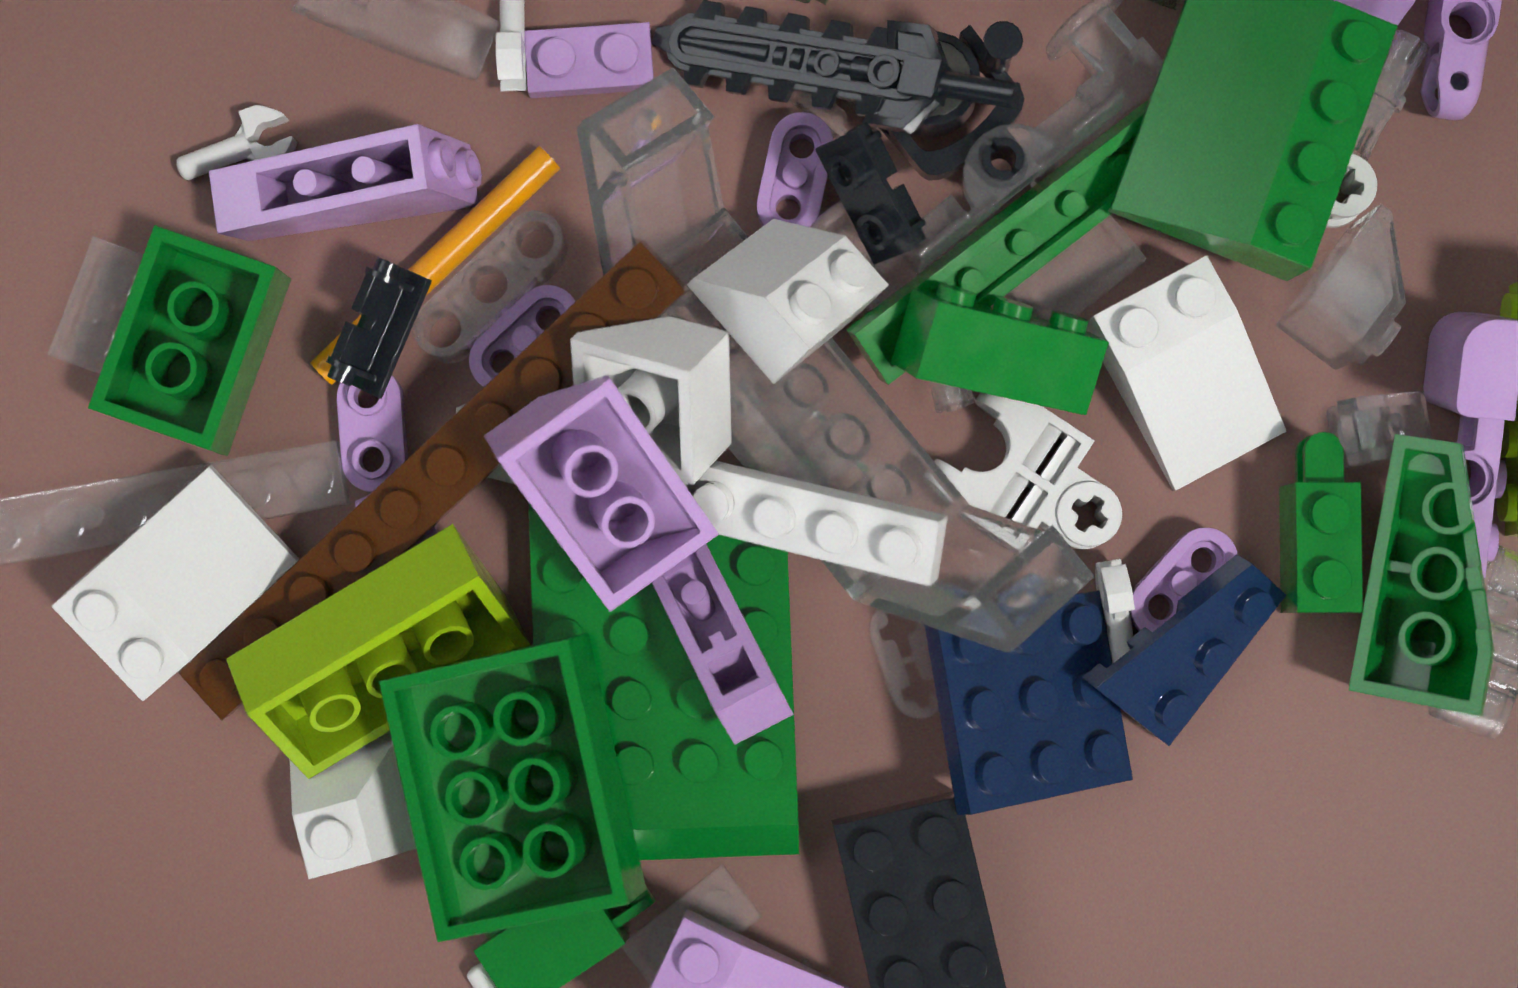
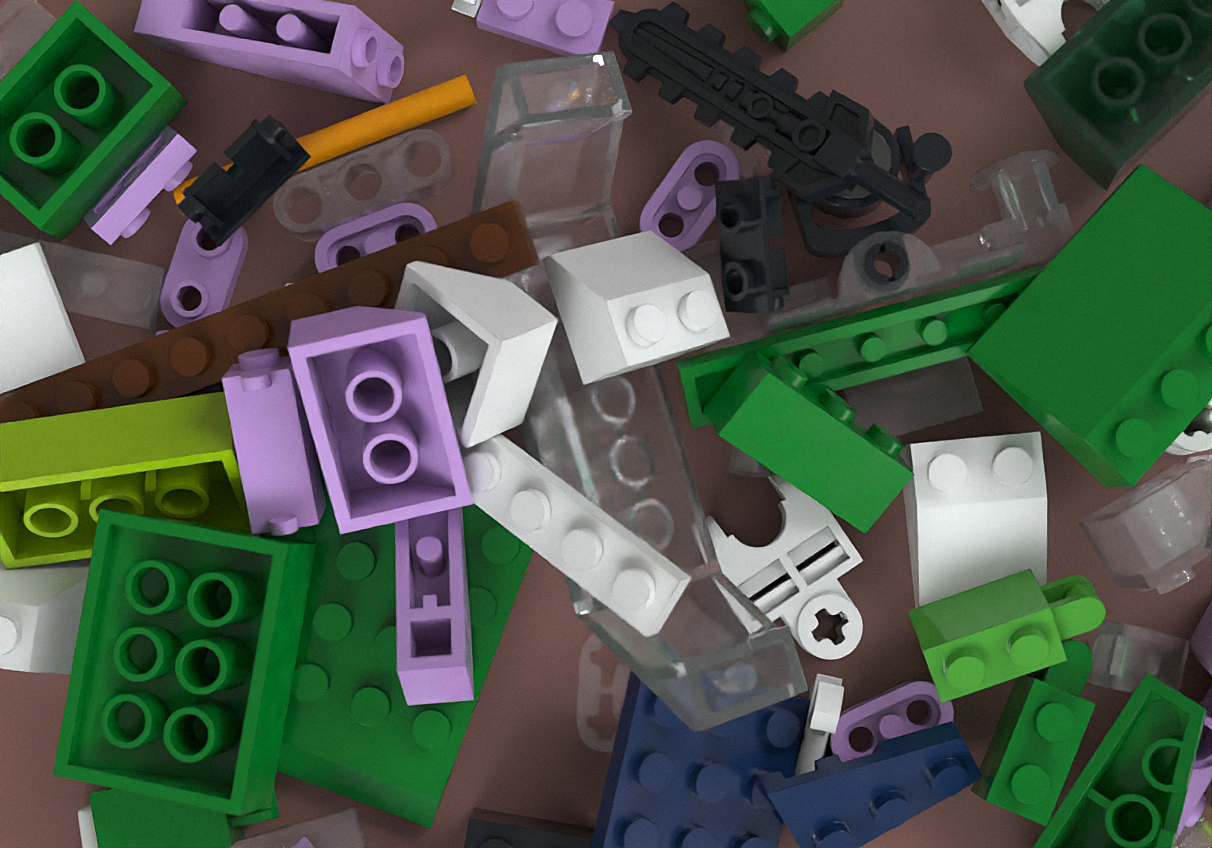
camera: 20 degrees right, 0 degrees up
(289, 352) = (124, 204): none -> lavender plate
(512, 554) = (273, 443): none -> lavender brick
(1247, 451) = (1002, 630): none -> bright green brick

